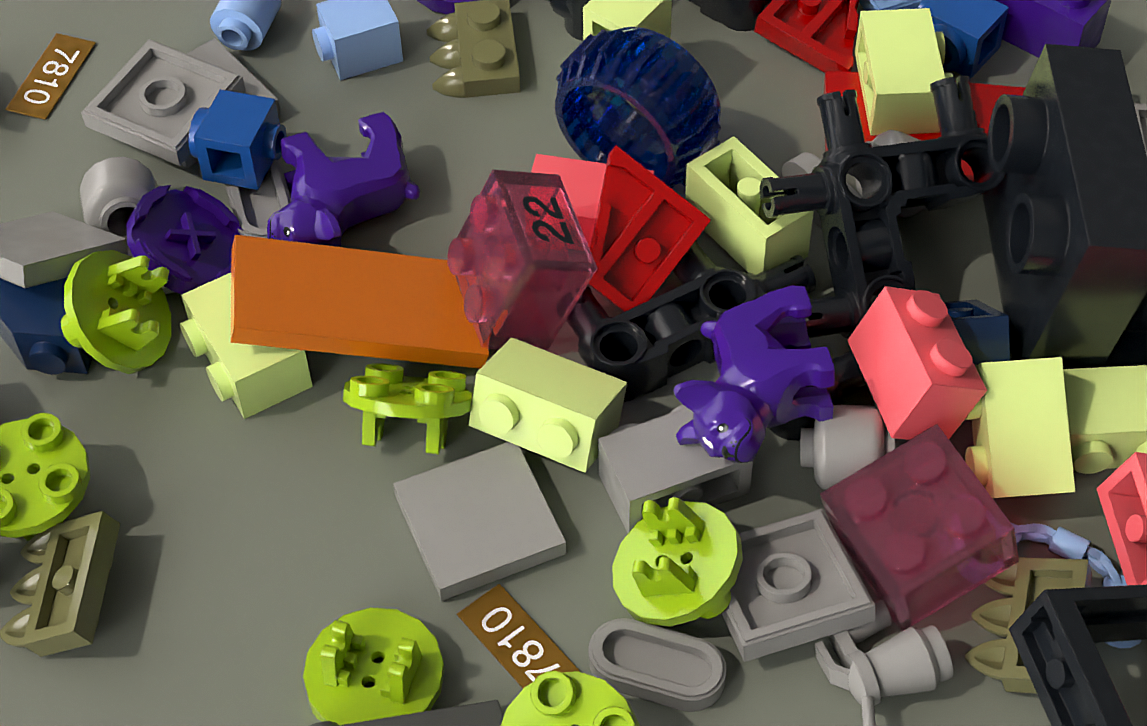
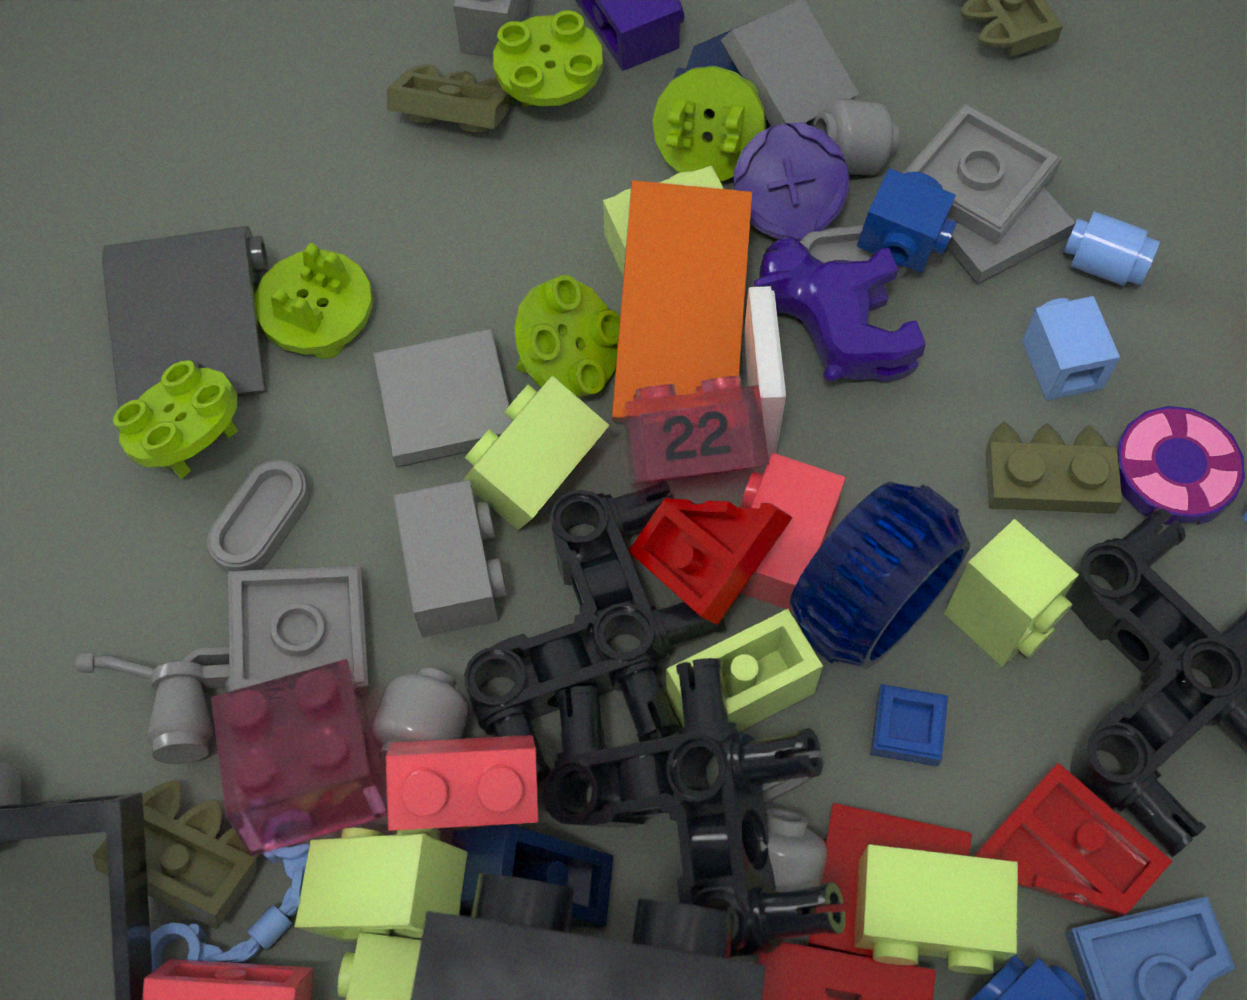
camera: 100 degrees right, 10 degrees up
(50, 76) = (1048, 100): pearl gold sticker -> none
(424, 212) = (764, 360): none -> white tile
(513, 637) = (316, 418): pearl gold sticker -> none
(653, 570) = (334, 538): lime plate -> none
(747, 120) = (909, 725): none -> blue tile
(763, 376) = (475, 611): dark purple animal -> none

